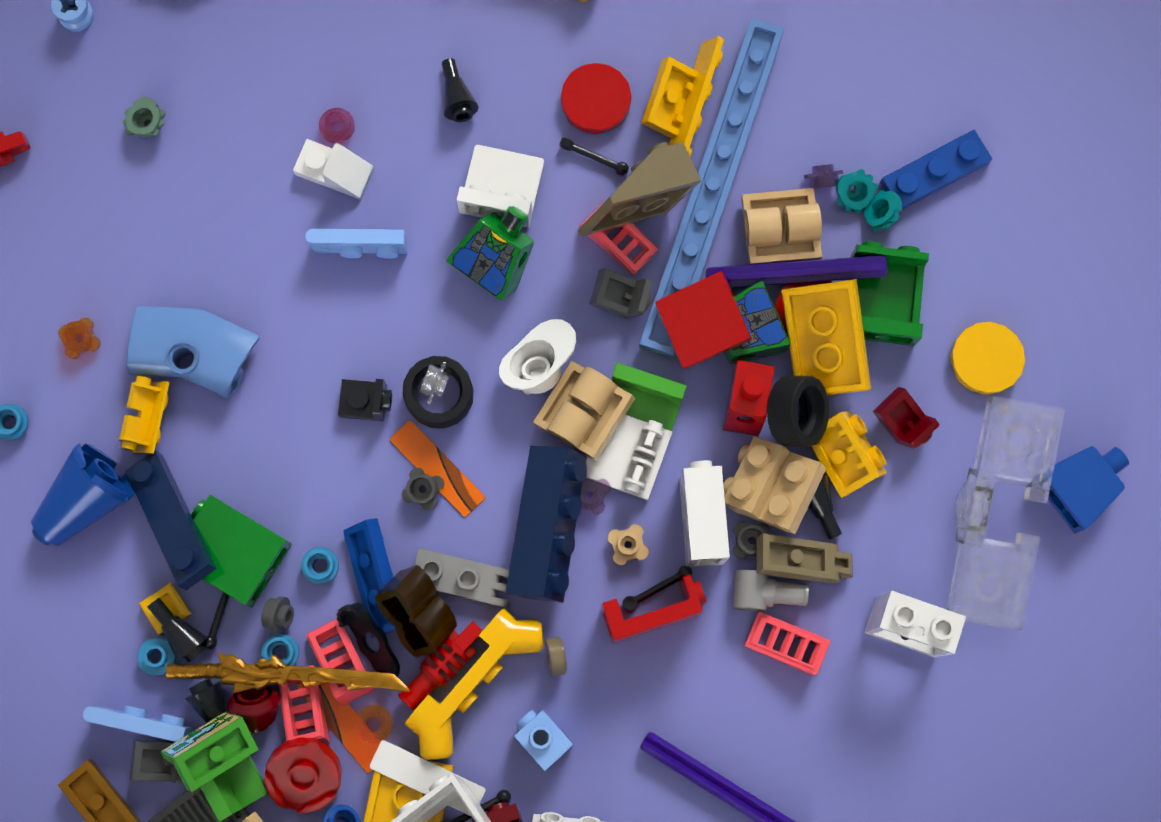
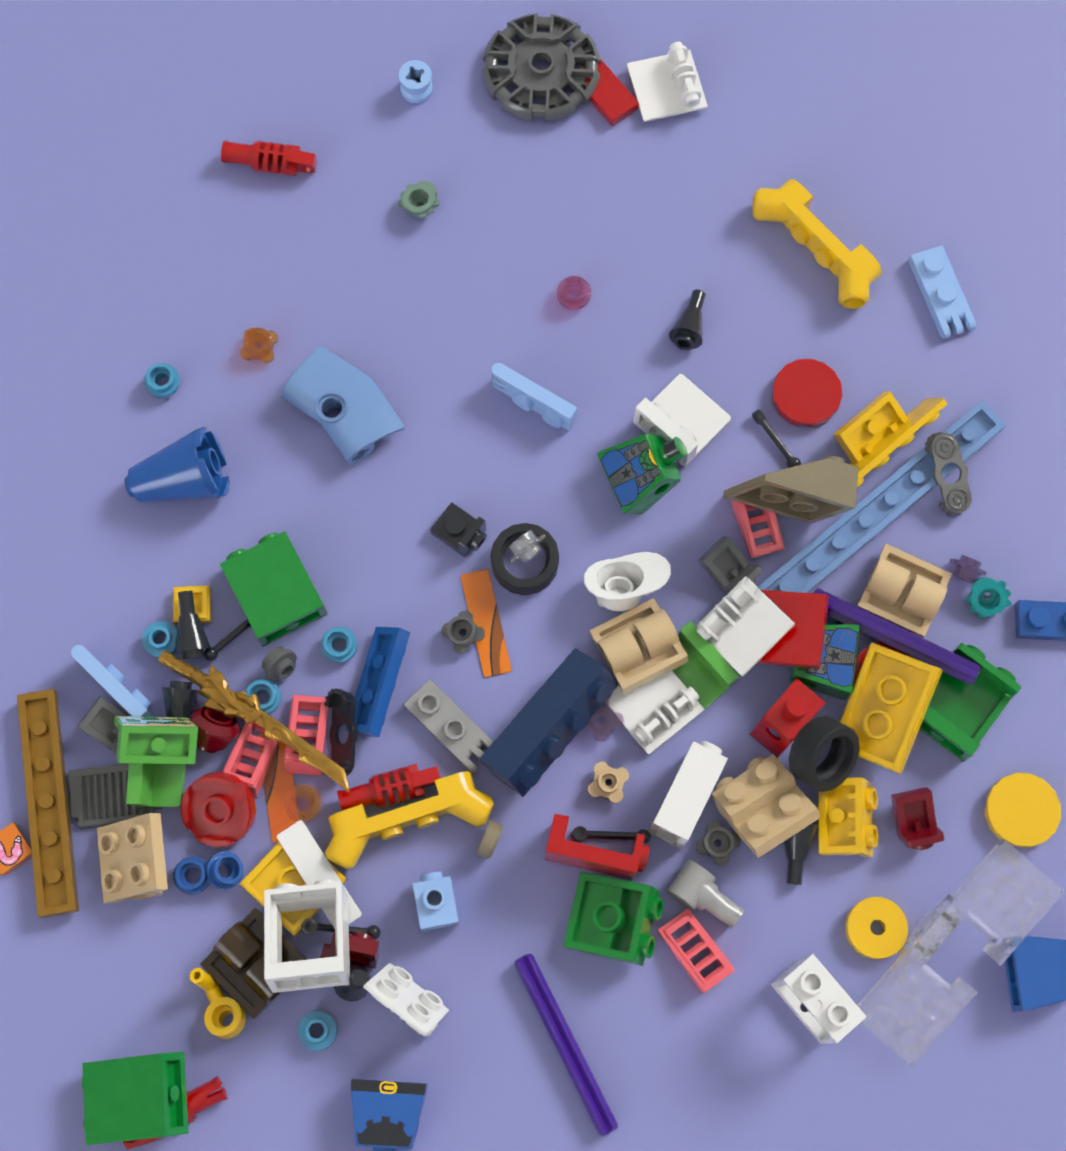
camera: 30 degrees right, 5 degrees down
(150, 400) = (262, 449): yellow hinge -> none
(170, 520) = (240, 533): dark blue plate -> none
(334, 168) = (550, 326): white slope -> none
(416, 611) = (394, 728): dark brown brick -> none
(665, 340) = (744, 626): none -> white hinge
(702, 659) = (613, 918): none -> green plate
(745, 83) = (946, 450): none -> dark grey piece
(802, 559) = (752, 885): dark tan hinge -> none
(883, 210) = (1003, 628): teal animal -> none
(937, 520) = (893, 928): none -> yellow piece

